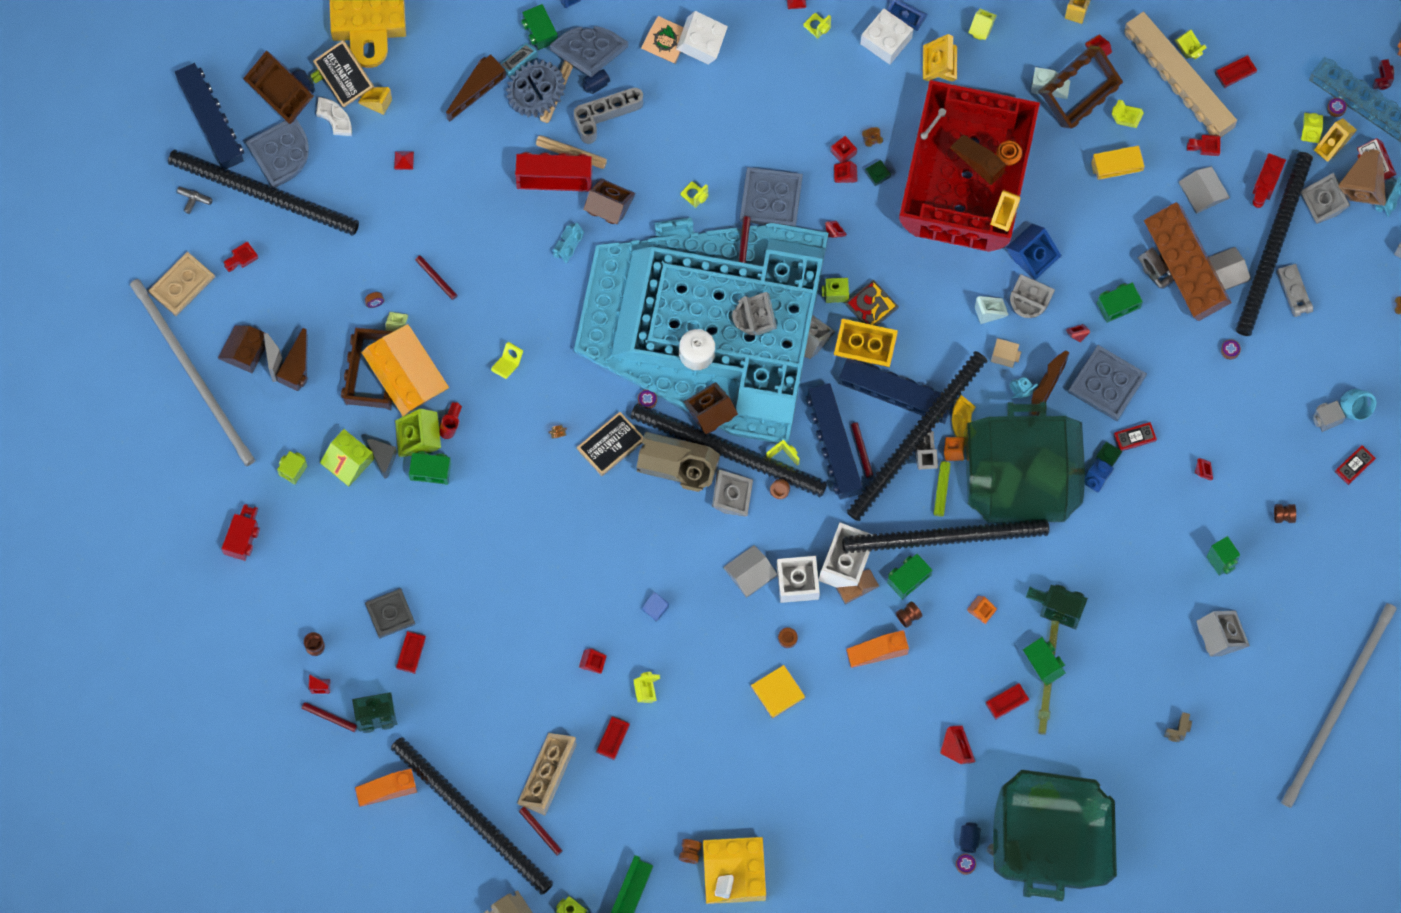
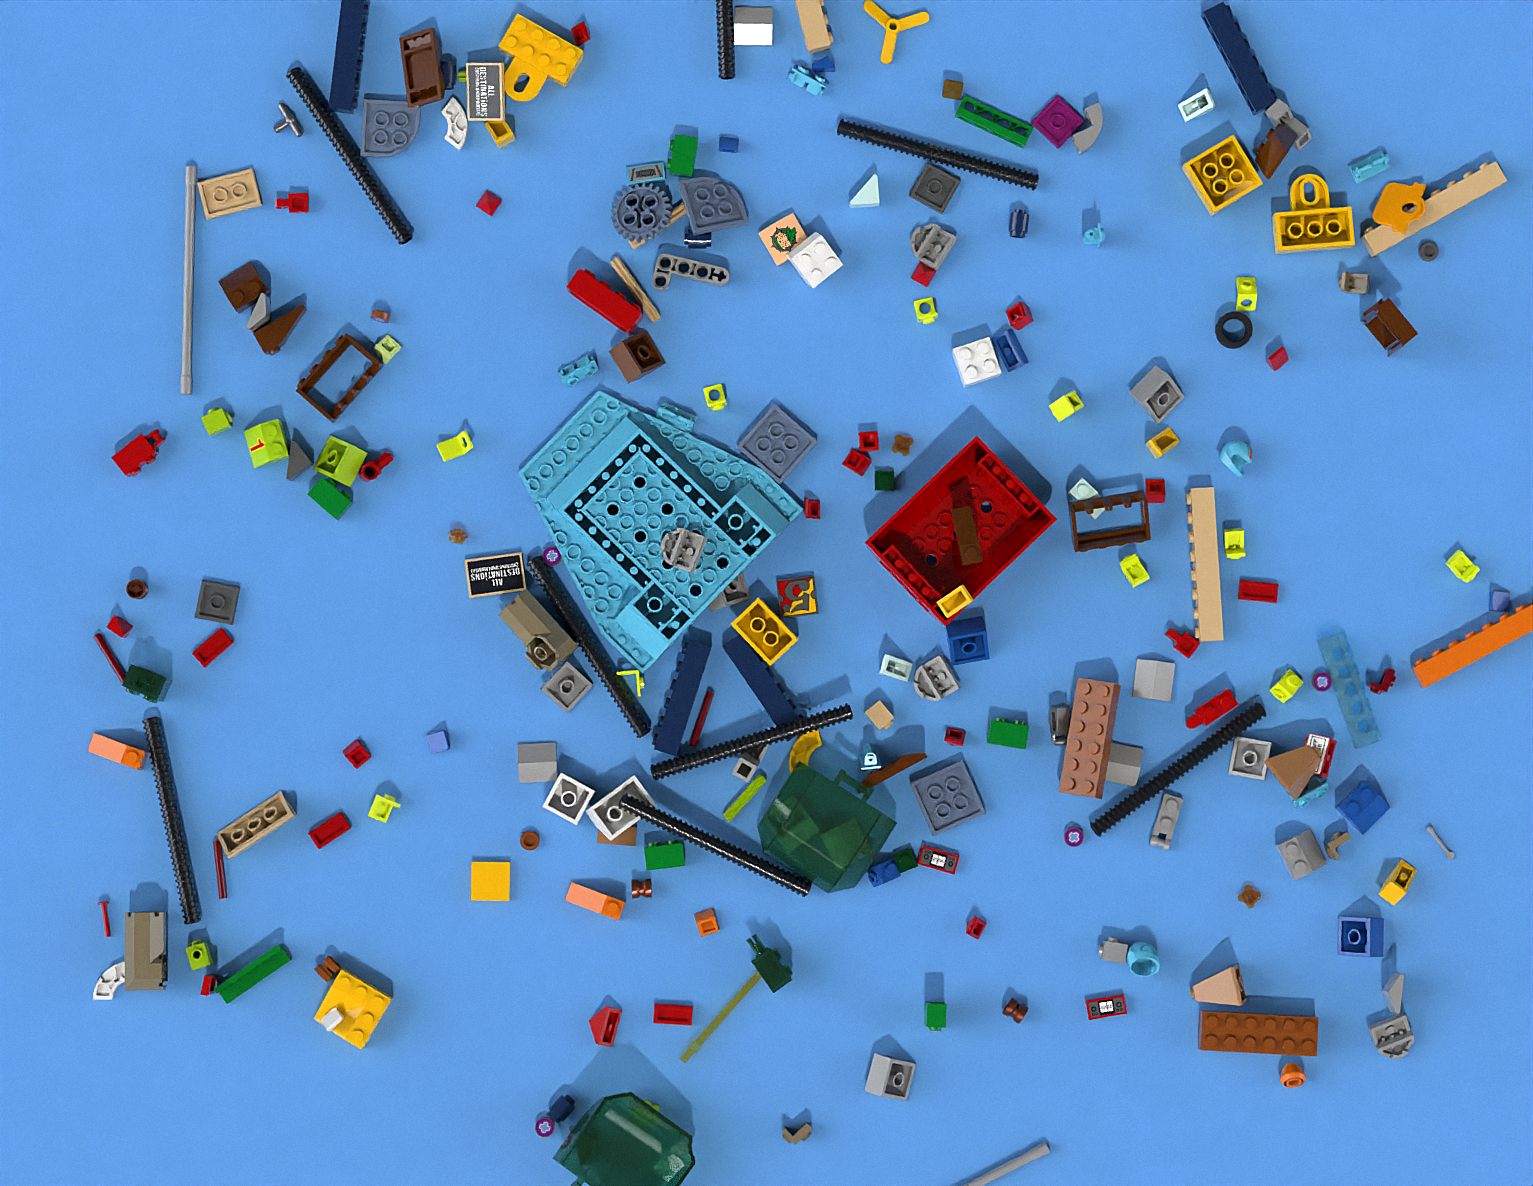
camera: 30 degrees right, 15 degrees up
(405, 369) = (363, 400): light orange slope -> none
(436, 277) = (446, 329): dark red bar -> none
(482, 79) = (602, 173): reddish brown slope -> none
(697, 349) = (621, 549): white head -> none
(711, 408) = (595, 602): reddish brown slope -> none
(744, 239) = (724, 471): dark red bar -> none
(780, 489) = (608, 709): dark orange tile -> none
(835, 290) = (774, 564): lime brick -> none
(940, 59) = (1007, 414): yellow bracket -> none
(941, 113) = (965, 473): light grey hinge -> none
(954, 448) = (779, 770): orange slope -> none
(1009, 152) = (990, 546): orange cone -> none
(1044, 660) = (724, 1004): green brick -> none
(1117, 162) = (1093, 610): yellow piece -> none
(1335, 139) = (1298, 711): yellow slope -> none

